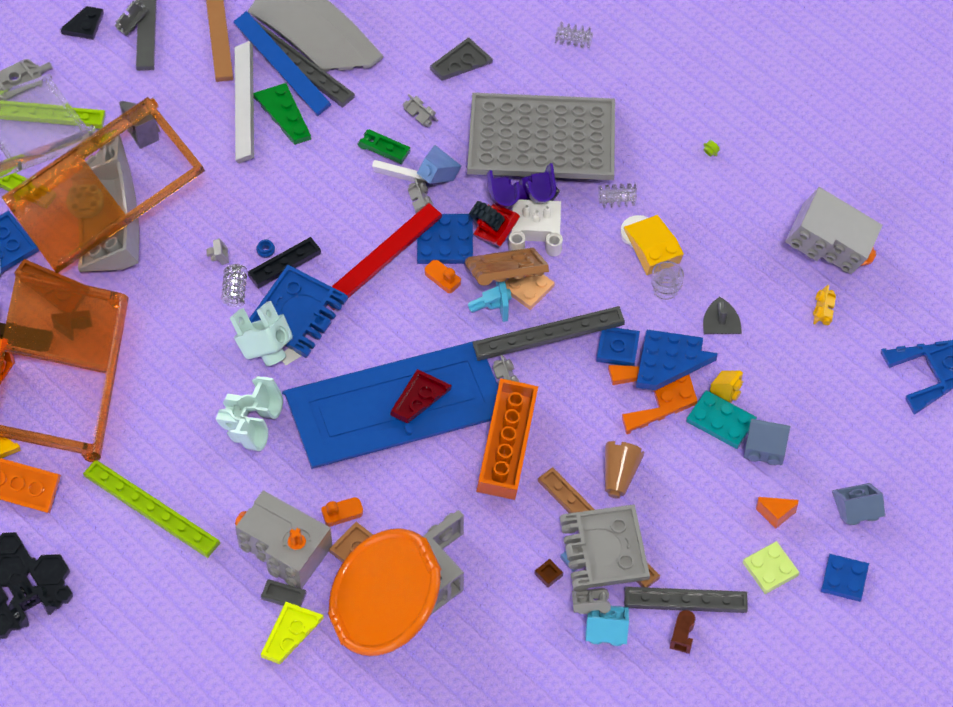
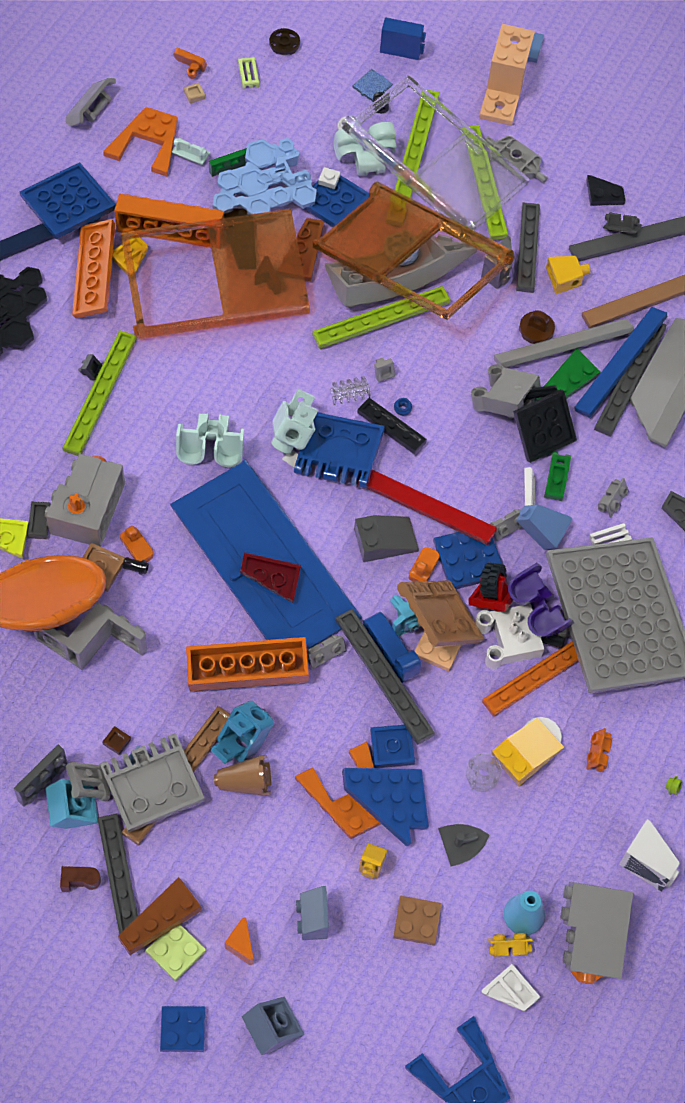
camera: 70 degrees right, 5 degrees up
(111, 97) = (528, 247): none -> dark grey tile
(120, 507) = (90, 367): none -> black tile
(158, 244) = (376, 318): none -> lime plate
(166, 78) = (566, 272): none -> yellow torso
(217, 118) = (536, 327): none -> reddish brown tile
(290, 150) = (509, 391): none -> light grey piece
(335, 135) = (545, 425): none -> black plate
(367, 514) = (136, 565): none -> black pin
(403, 300) = (384, 536): none -> dark grey slope
(459, 114) = (614, 529): none -> white tile
(543, 313) = (403, 663): none -> blue beam
(575, 639) = (41, 776): none -> dark grey plate
(581, 223) = (531, 679): none -> orange tile
(582, 451) = (245, 724): none -> dark azure piece
(617, 195) = (573, 704): clear piece -> none
(664, 193) = (600, 742): none -> orange hinge
(720, 419) = (337, 865): teal plate -> none
(738, 568) = (161, 916): none -> dark orange wing
(774, 179) = (651, 858): none -> white slope
(786, 370) = (417, 920): none -> medium nougat plate
(800, 284) = (524, 913): none -> medium azure cone
(864, 315) = (512, 989): none -> white wing

